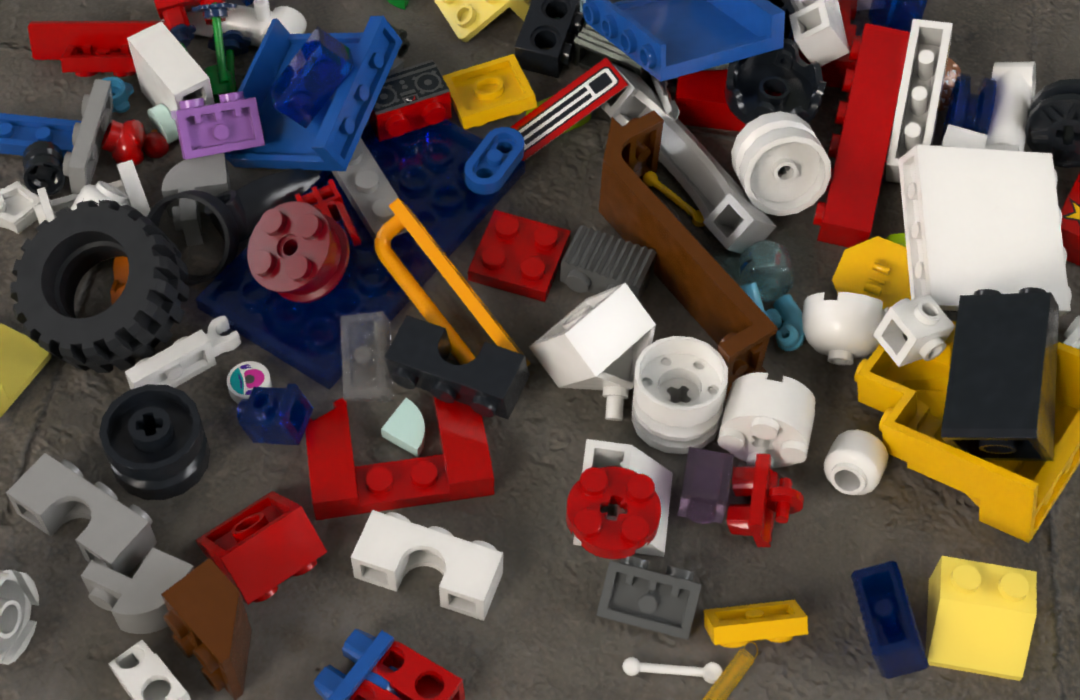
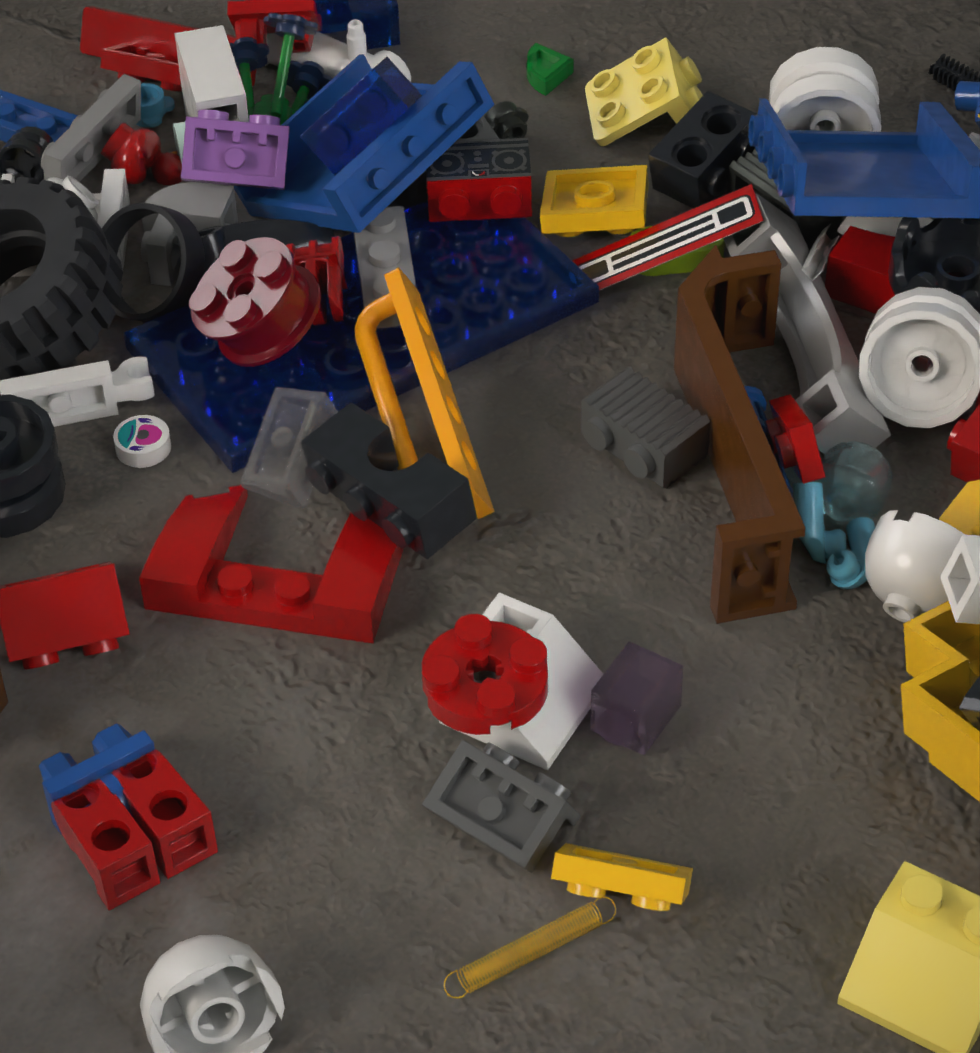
camera: 25 degrees right, 10 degrees down
(267, 412) = (139, 468): clear blue brick -> none
(395, 546) = (214, 656): white arch -> none
(406, 428) = (300, 538): light aqua tile -> none
(488, 166) = (554, 270): blue plate -> none
(519, 255) = (538, 390): red plate -> none
(598, 346) = (576, 503): white piece -> none
(651, 179) = (759, 349): yellow hinge -> none
(679, 394) = (652, 581): white wheel -> none
(710, 672) = (442, 880): white hinge -> none
(727, 251) = (794, 439): none -> red plate
(766, 499) = (709, 741): red hips -> none
(768, 419) = (752, 646): white brick -> none
(856, 462) = (856, 732): white head -> none
(889, 620) = (798, 920): clear blue brick -> none

